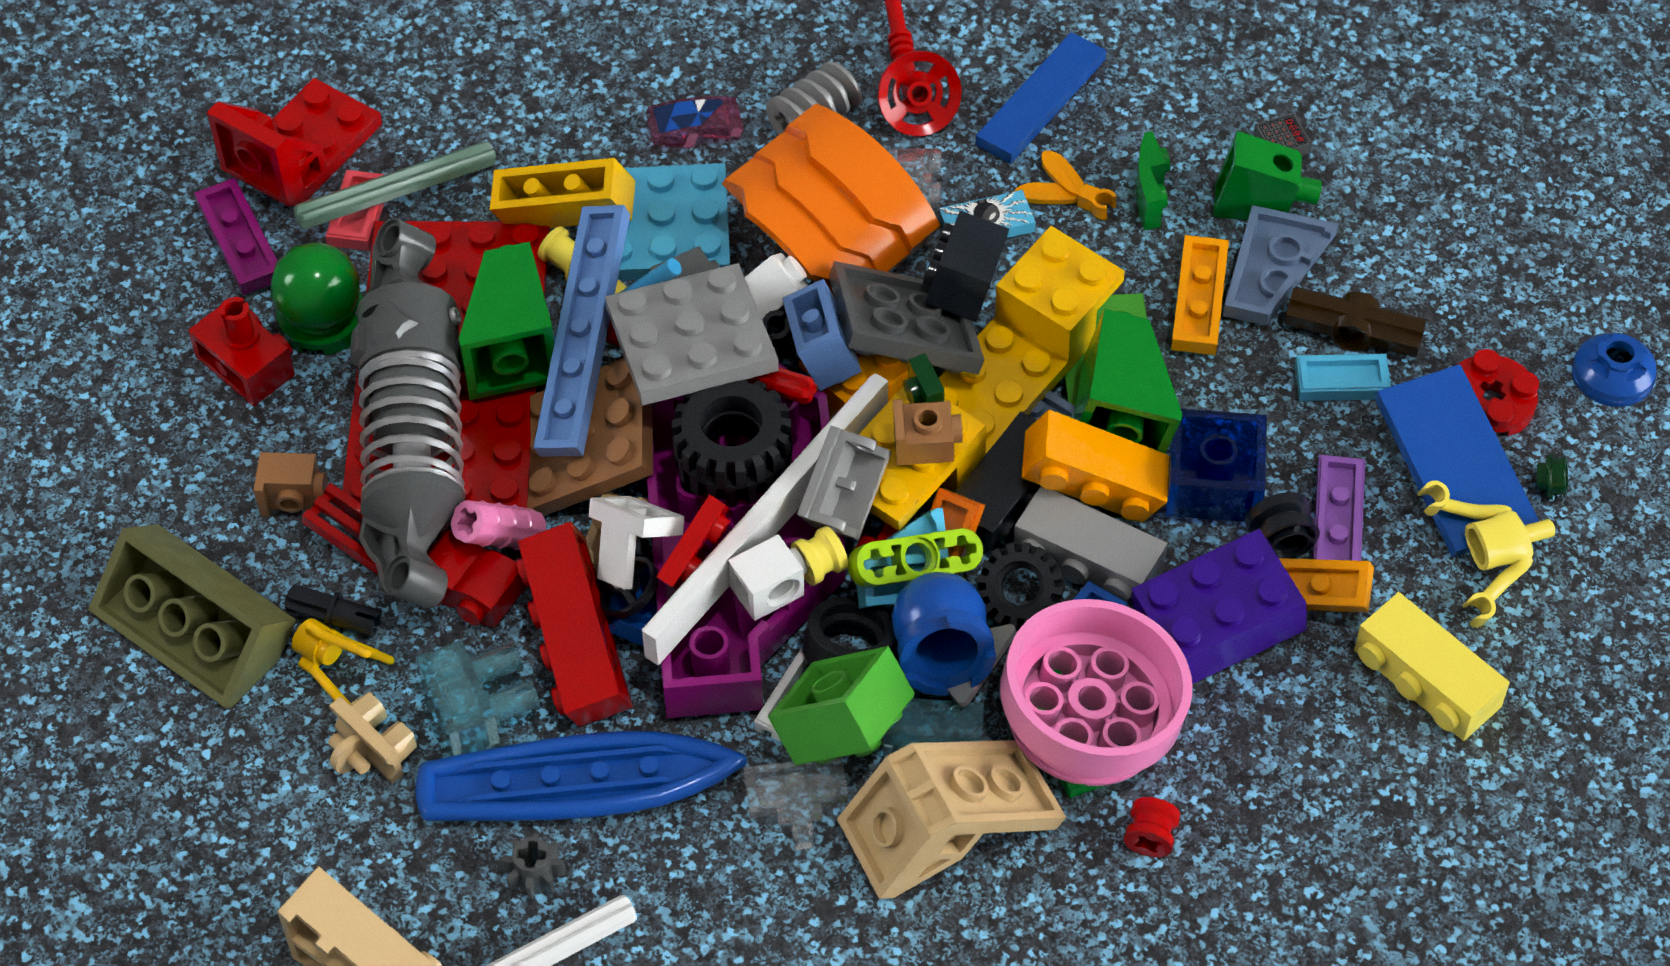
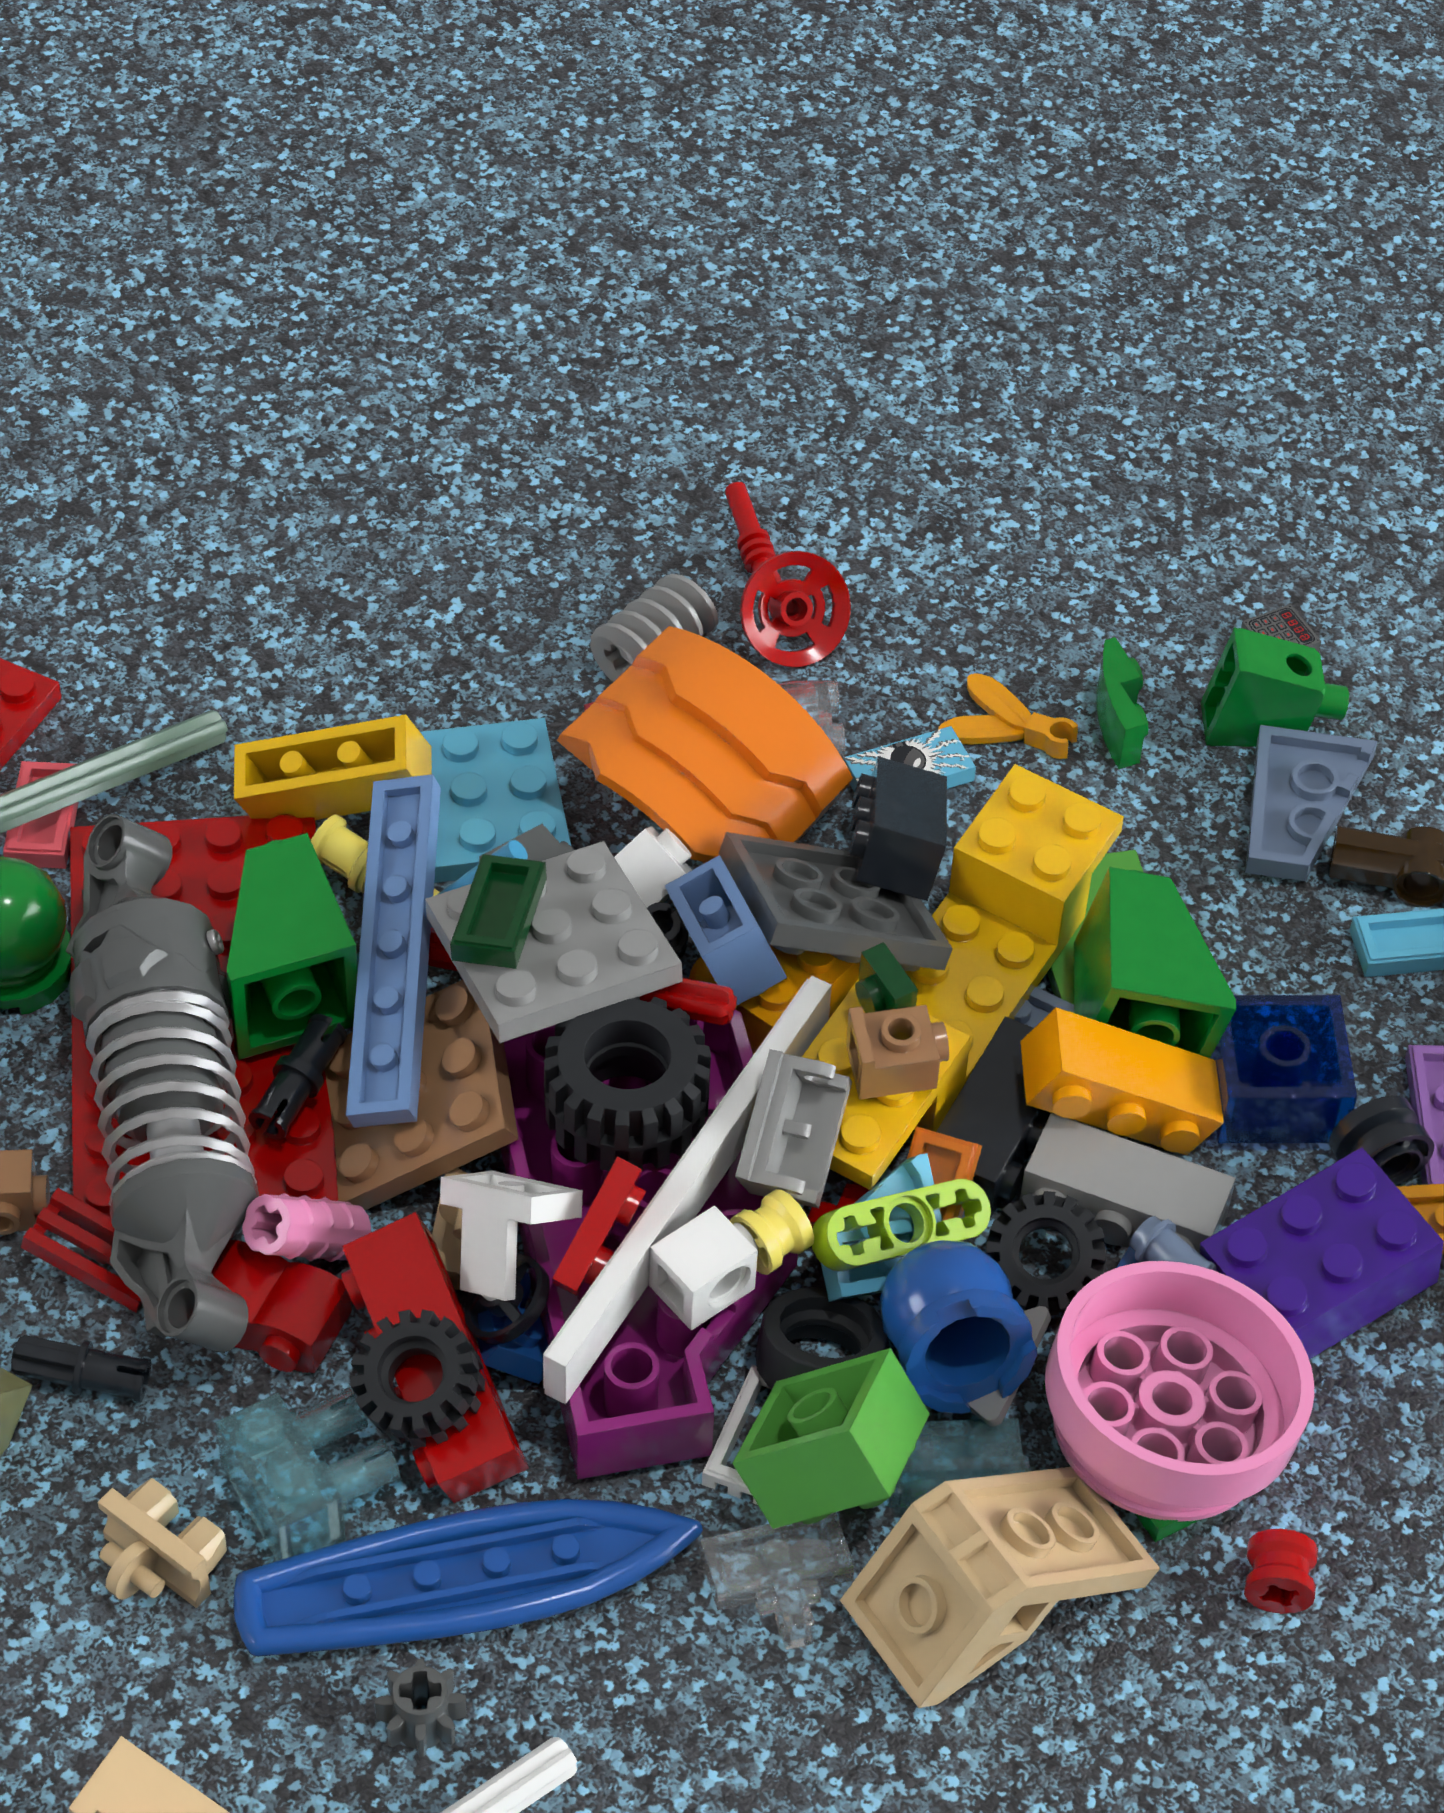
camera: 10 degrees left, 5 degrees down
(323, 646) = (74, 1418): yellow plant -> none
(507, 416) = (297, 1076): none -> black pin
(534, 624) = (395, 1345): none -> black tyre
(652, 310) = (498, 911): none -> dark green tile
(686, 119) = (485, 663): clear pink slope -> none
(1040, 97) = (952, 607): blue tile -> none
(1102, 585) = (1159, 1242): none -> sand blue pin
(1200, 295) = (1212, 846): light orange plate -> none

